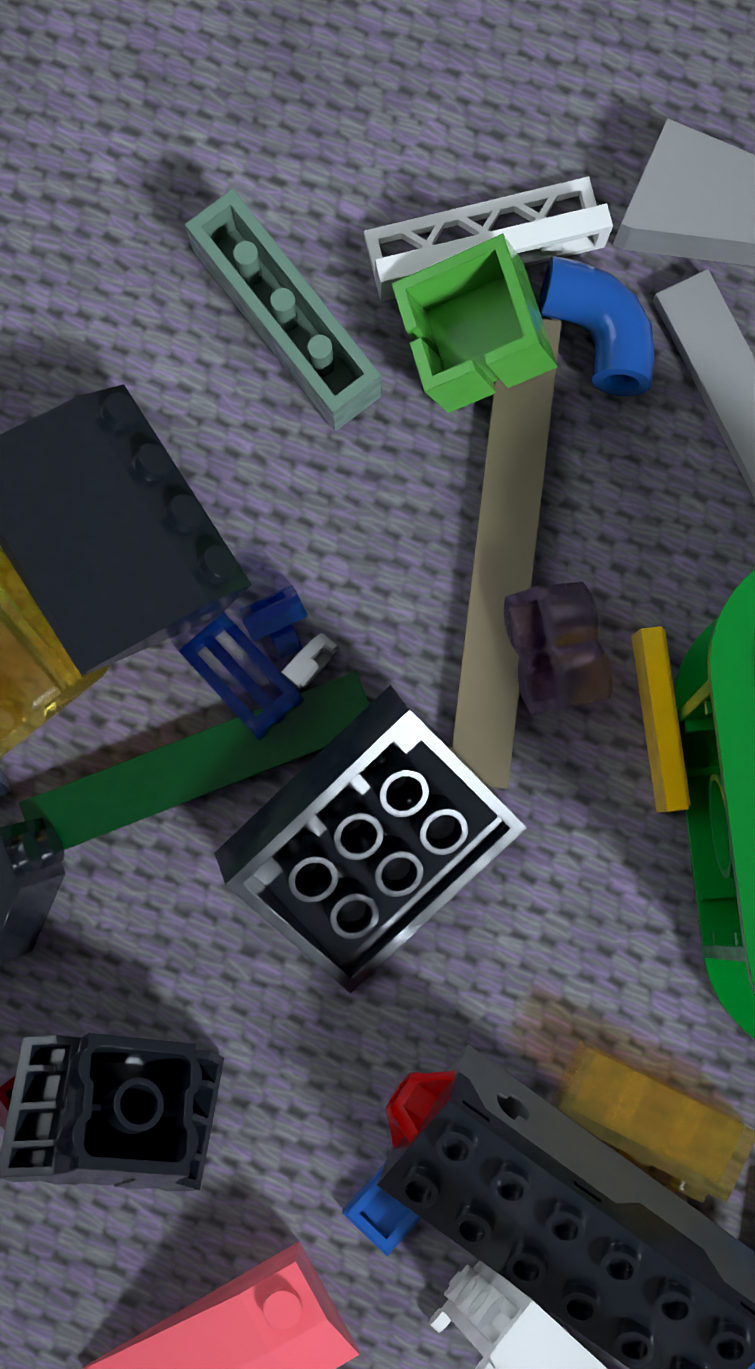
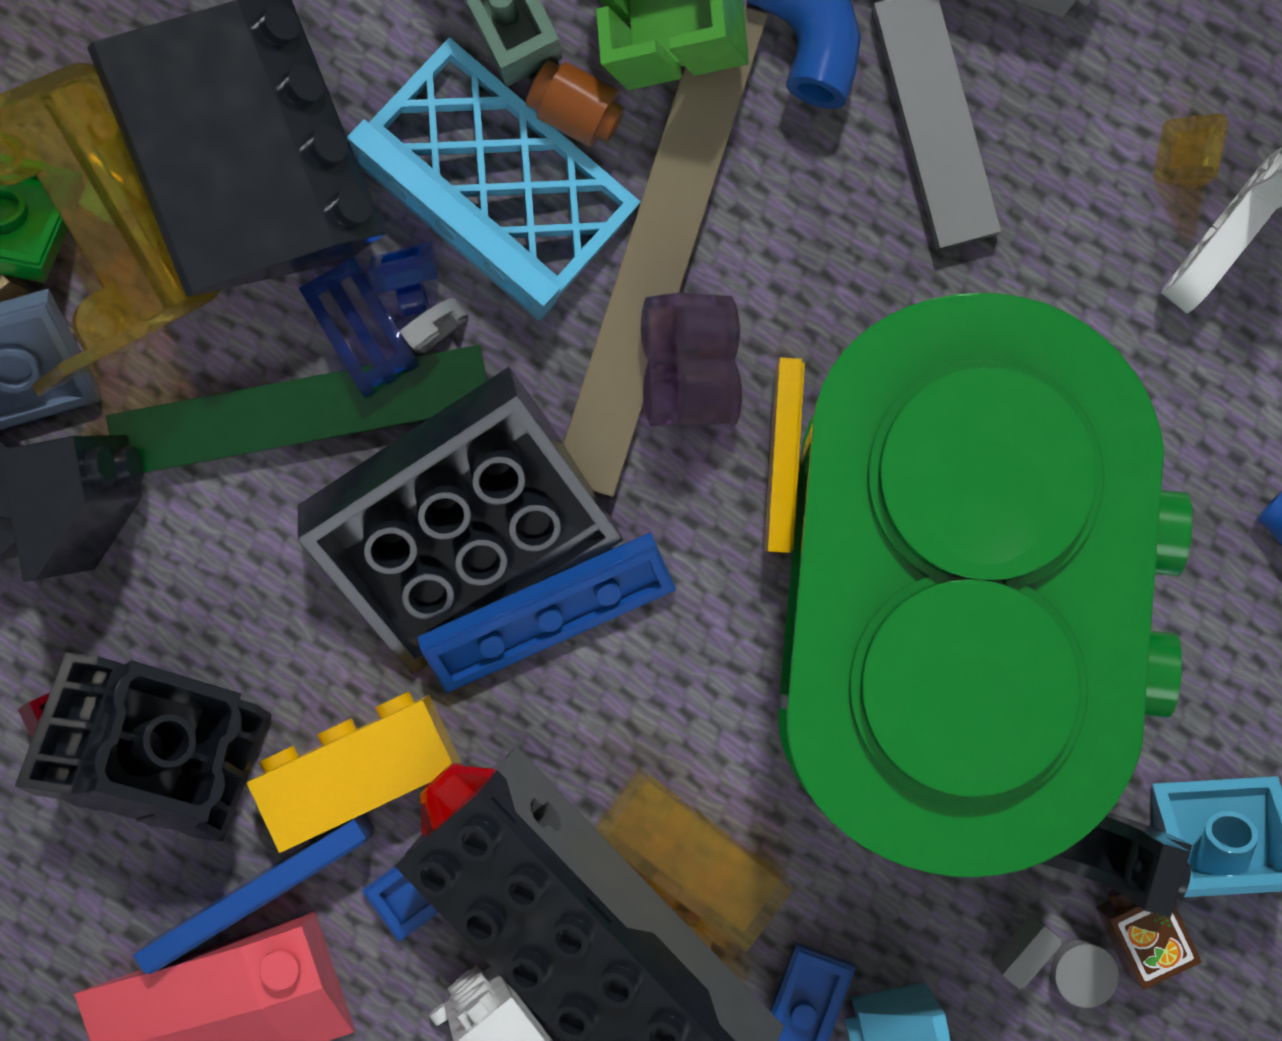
camera: 15 degrees right, 5 degrees up
(240, 1237) = (253, 894): none -> blue tile
(312, 558) = (454, 216): none -> medium azure fence
(312, 1098) = (352, 770): none -> yellow brick
(402, 433) = (575, 102): none -> dark orange brick
(468, 910) = (546, 613): none -> blue tile

